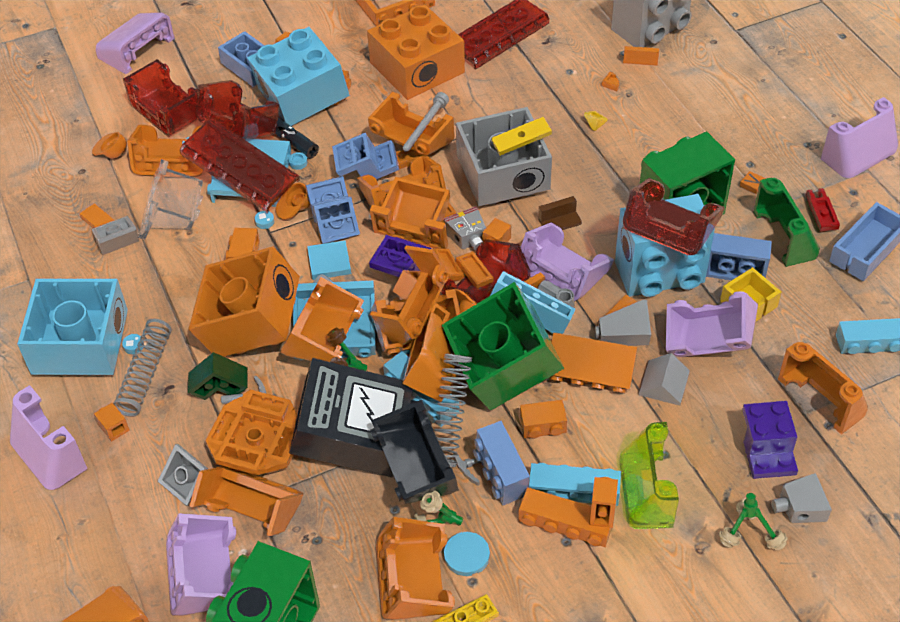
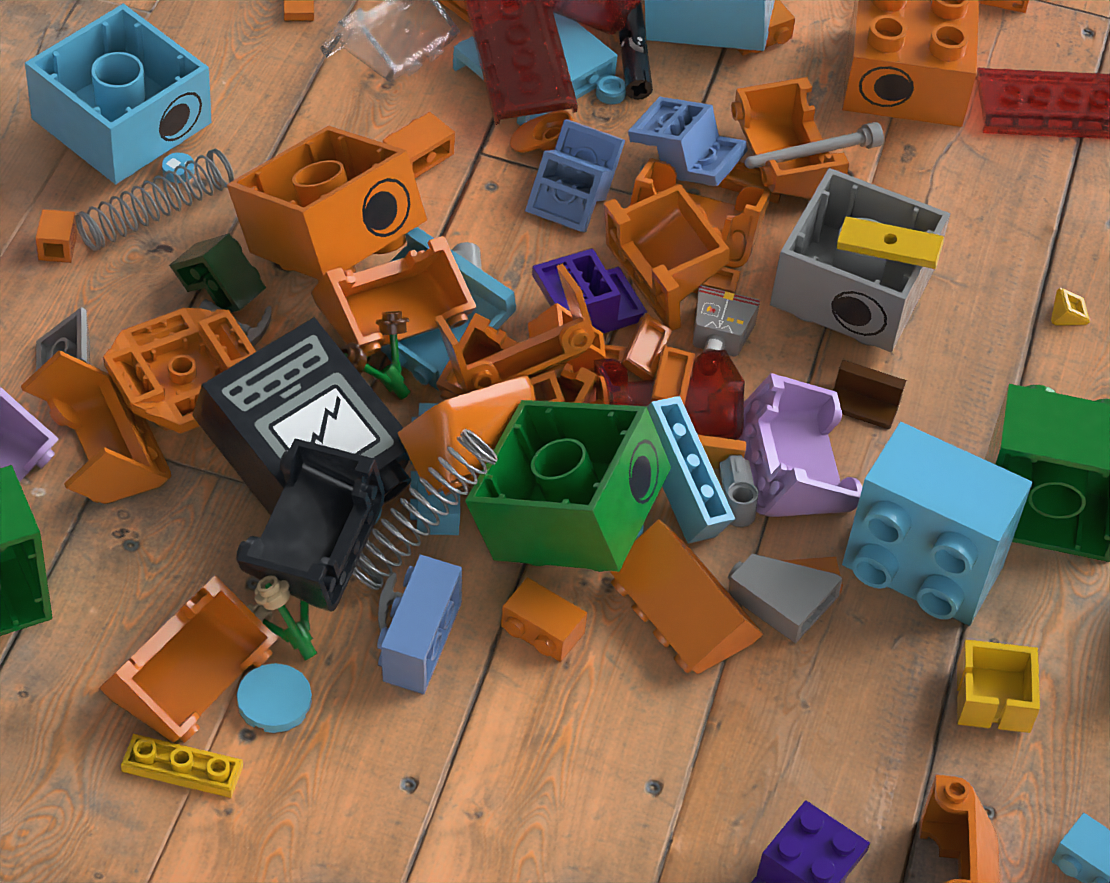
camera: 35 degrees right, 0 degrees up
(115, 235) = (292, 26): light grey slope -> none
(264, 220) = (487, 133): medium azure tile -> none
(329, 259) = (511, 236): medium azure tile -> none
(497, 231) = (753, 355): orange brick -> none
(562, 517) = (434, 754): orange brick -> none
(568, 481) = (491, 725): medium azure brick -> none
(603, 502) = (475, 761): orange brick -> none
(647, 500) = (614, 757): clear neon green windscreen -> none
(665, 379) = (761, 701): light grey slope -> none
(666, 222) = (934, 478): clear red windscreen -> none
(711, 327) = (884, 678): lavender windscreen -> none
(735, 255) = (1031, 613): medium blue brick -> none

